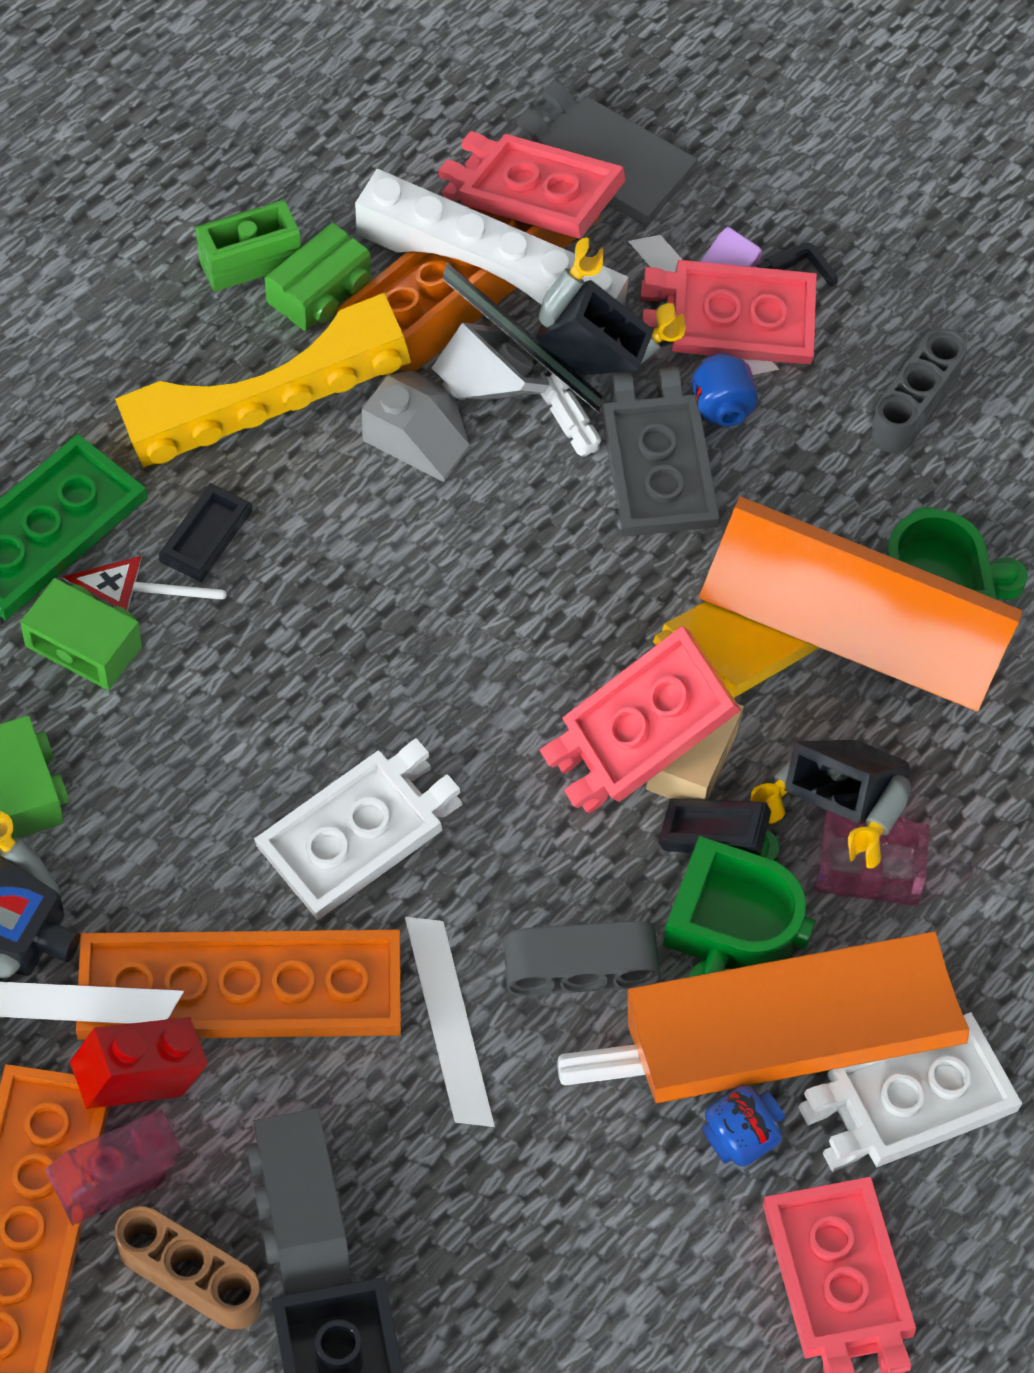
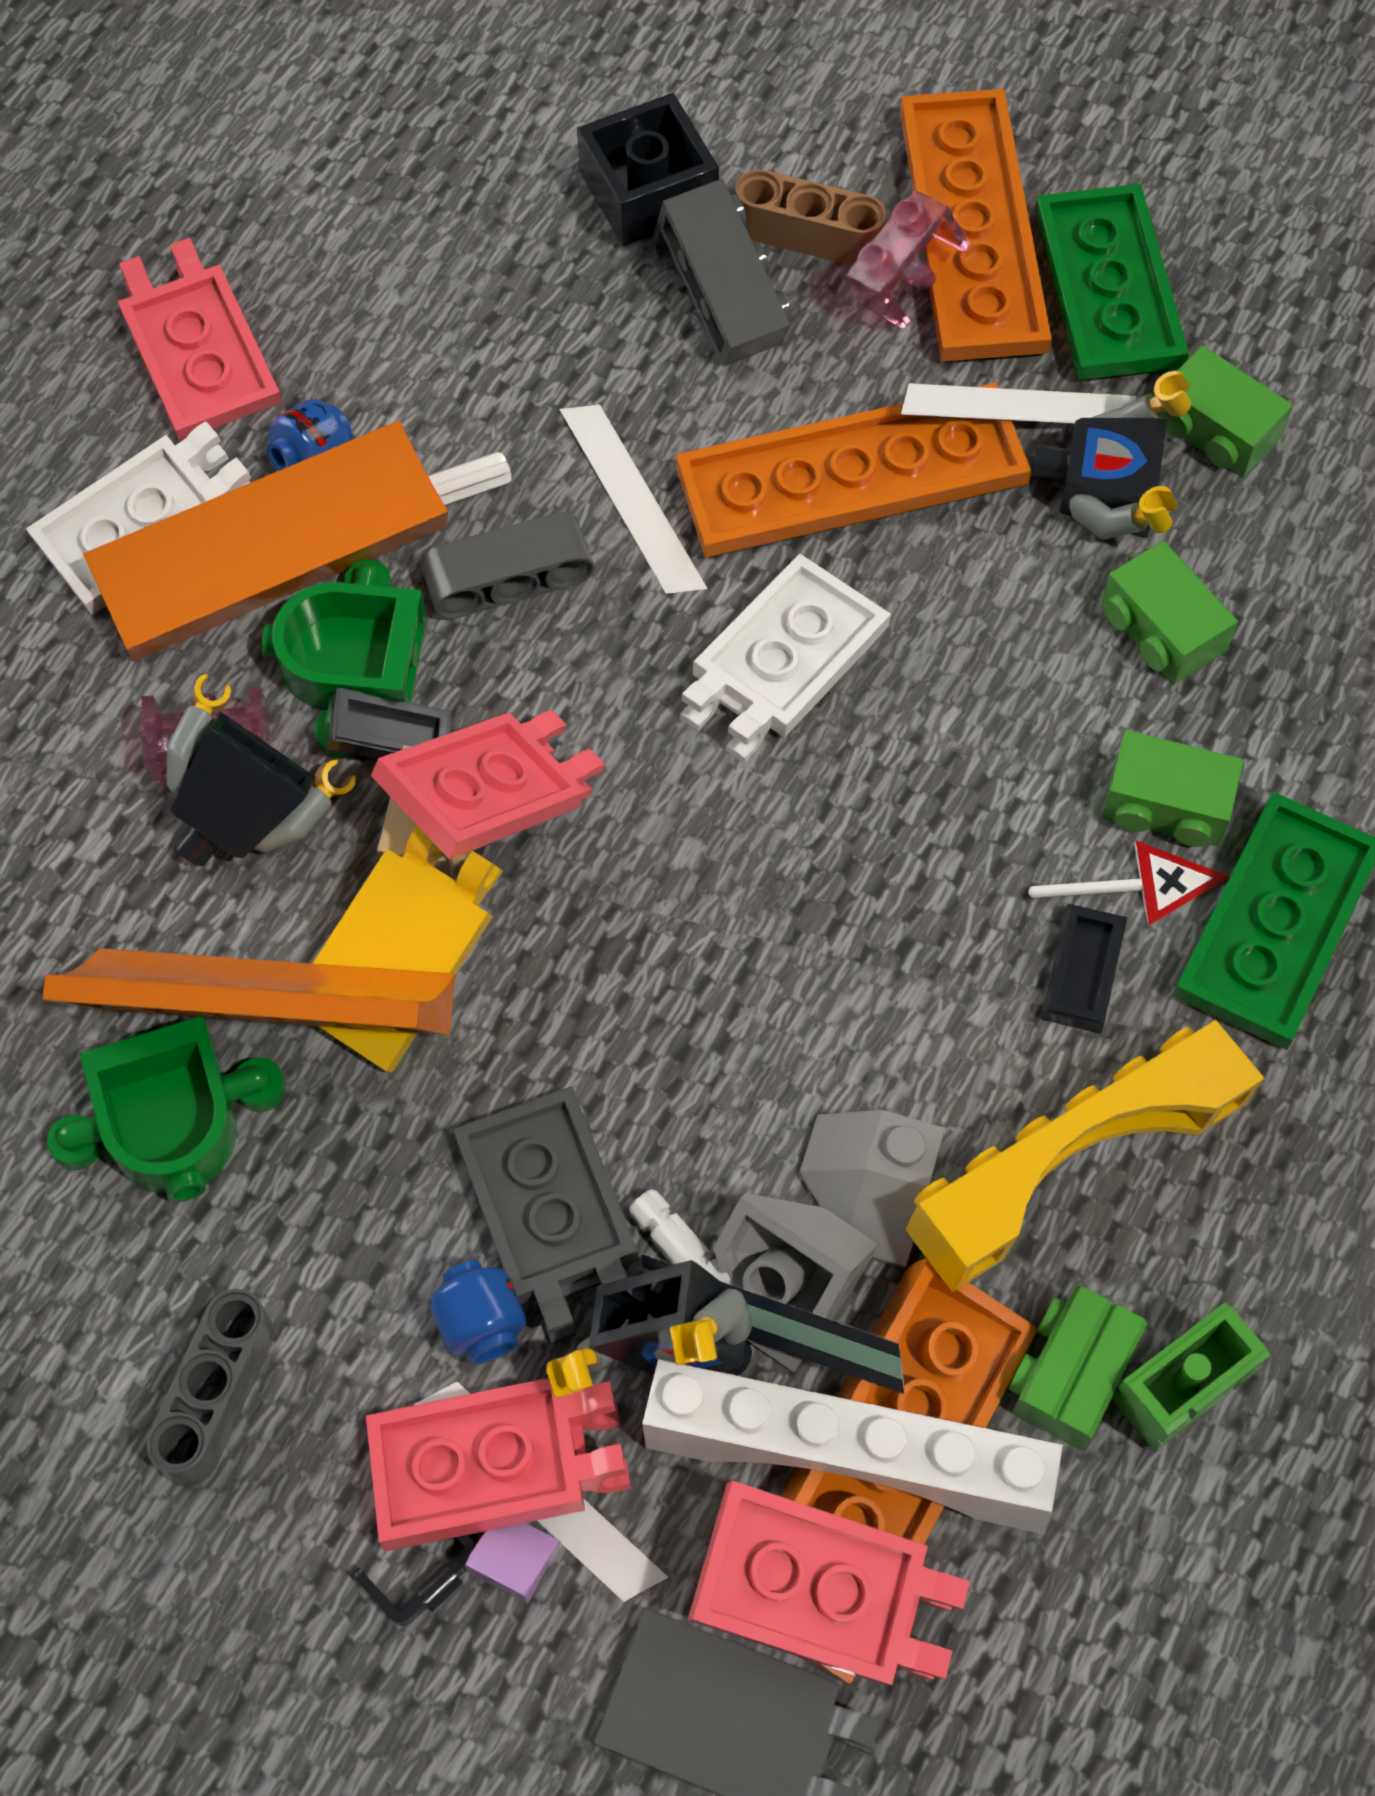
camera: 170 degrees right, 5 degrees up
(138, 1062) = (920, 343): red brick -> none

